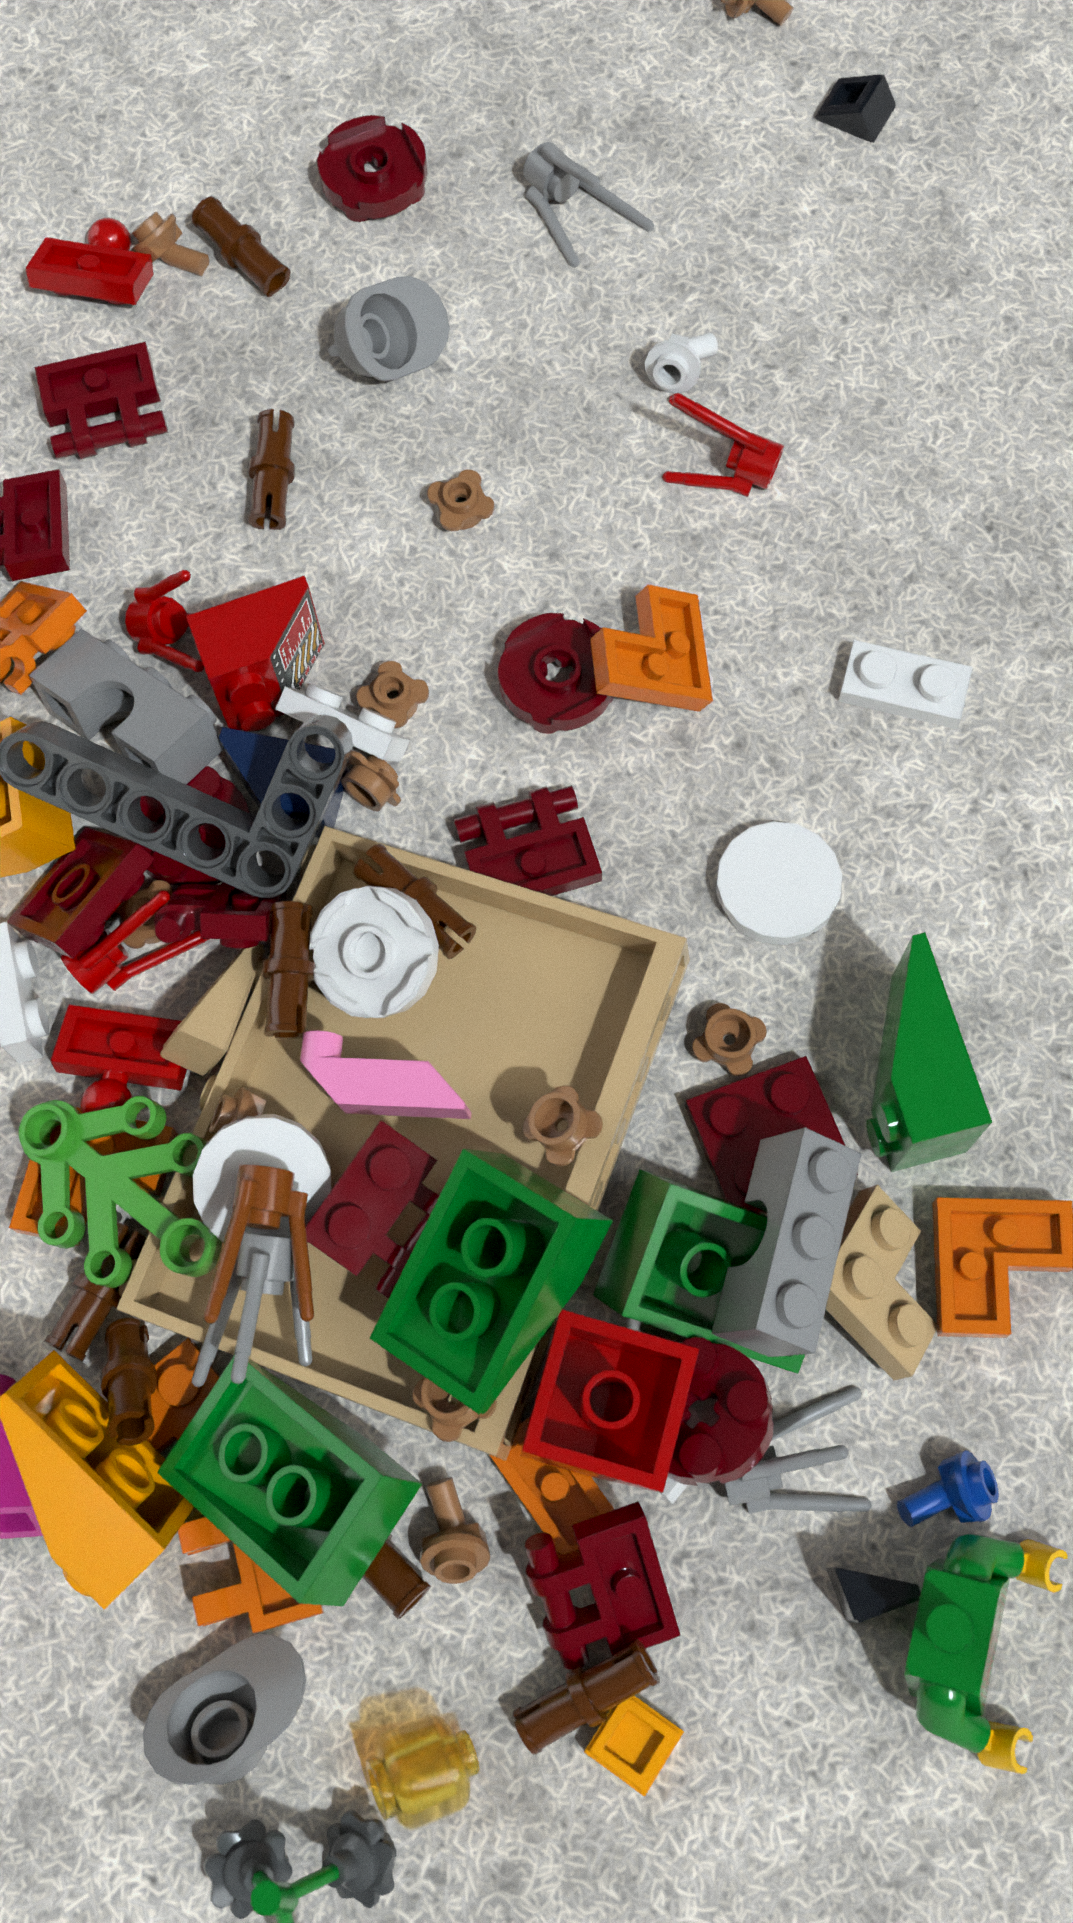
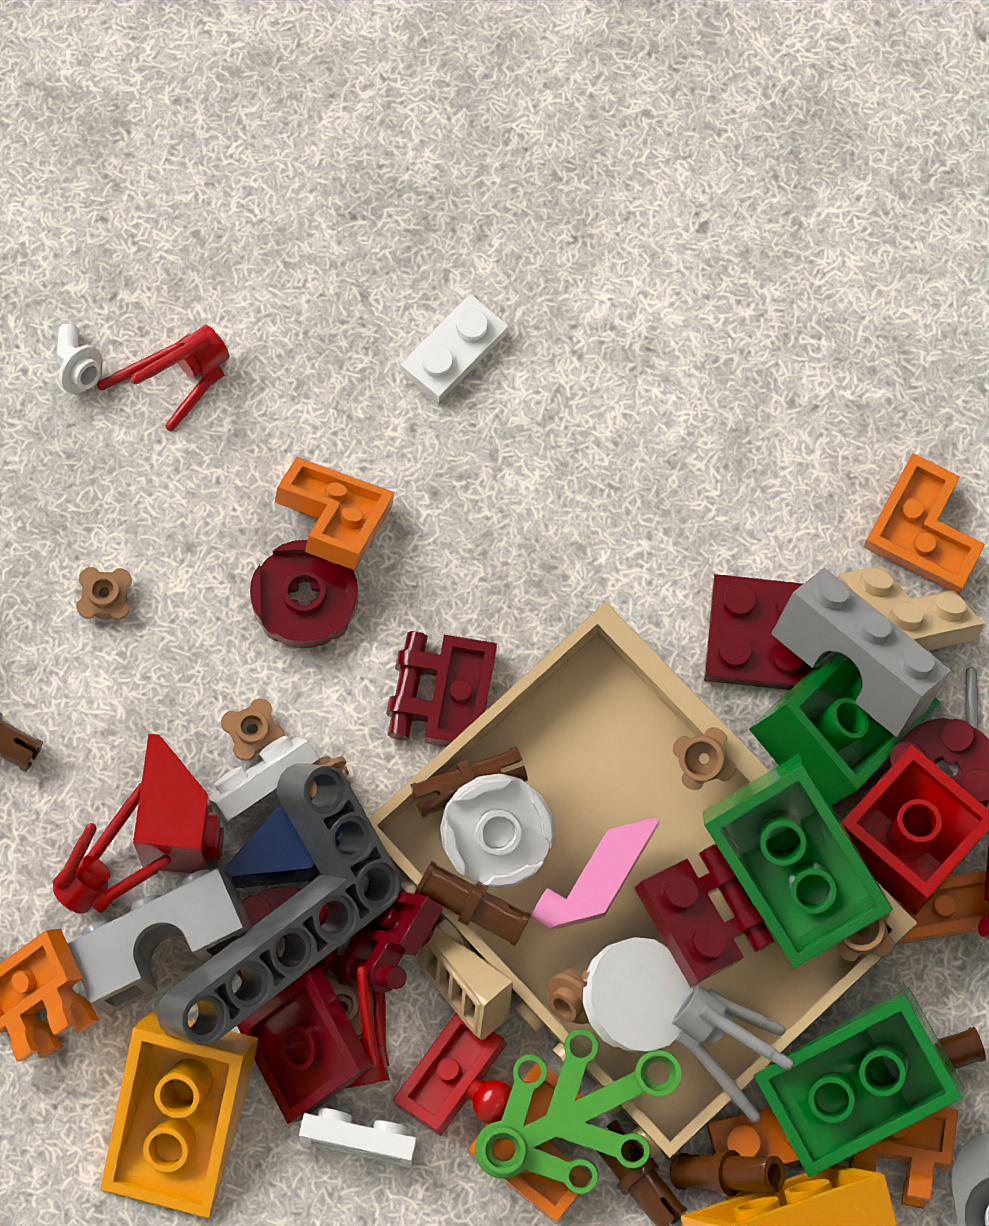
camera: 70 degrees left, 0 degrees up
(259, 1202) = (663, 992): dark orange plant -> none
(458, 1548) = (954, 999): medium nougat plate -> none
(724, 1021) = (676, 607): medium nougat plate -> none
(778, 882) = (567, 523): white tile -> none
(925, 1083) = (772, 497): green slope -> none

